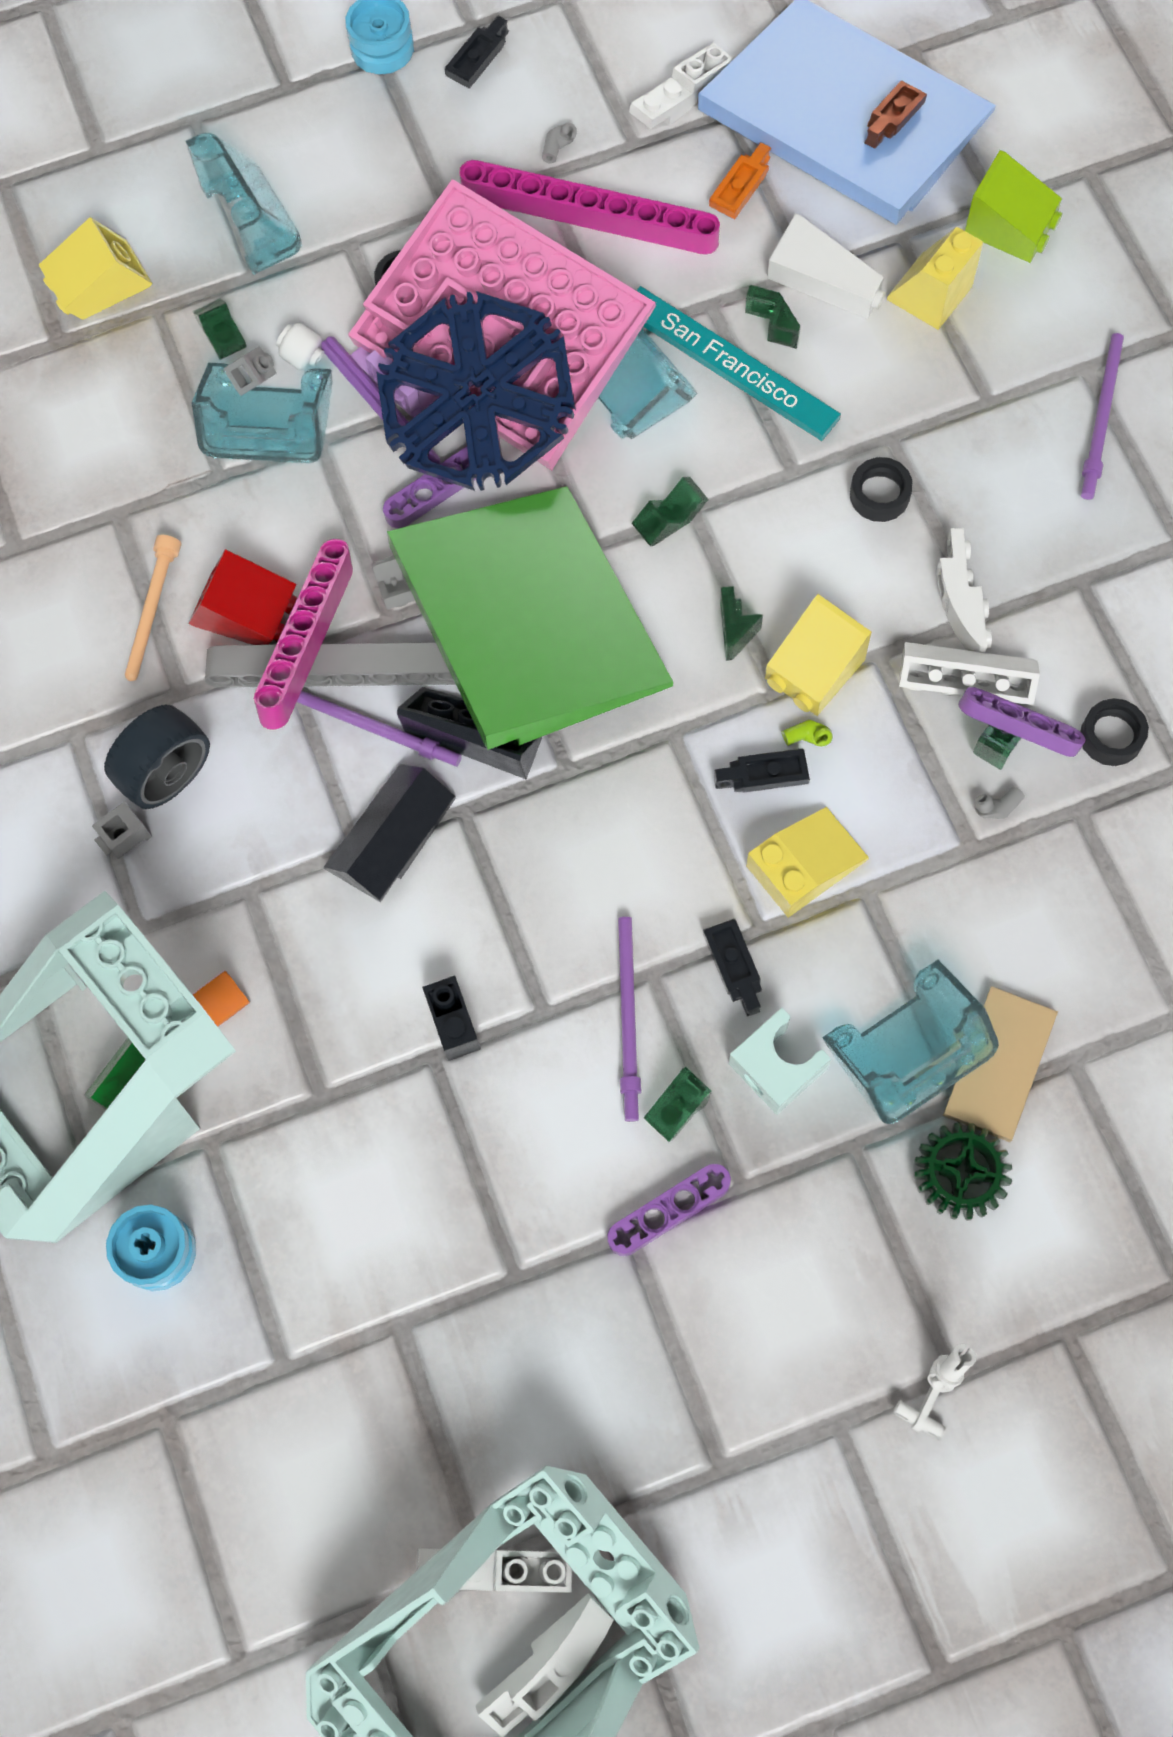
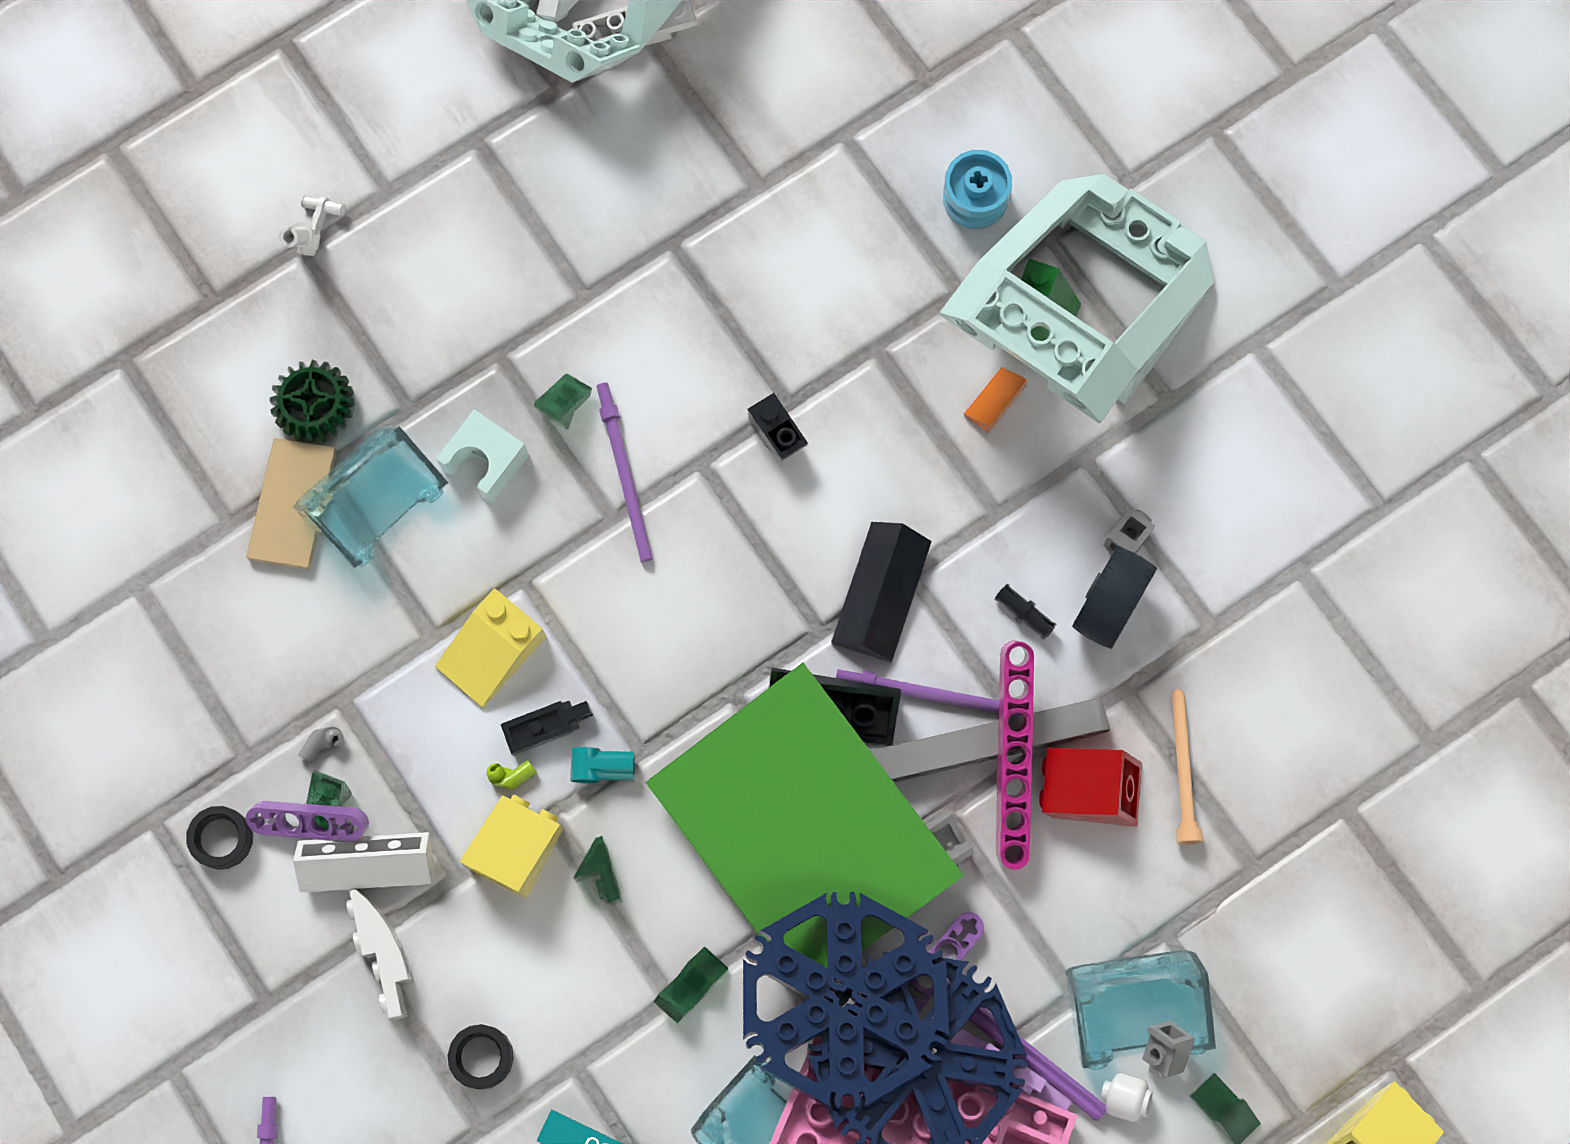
camera: 165 degrees right, 5 degrees up
(251, 780) = (1025, 611): none -> black pin
(520, 473) = (845, 1029): none -> dark blue plate
(666, 1205) = (551, 316): medium lavender beam -> none
(723, 723) = (592, 765): none -> teal piece
(734, 964) = (539, 537): black hinge -> none

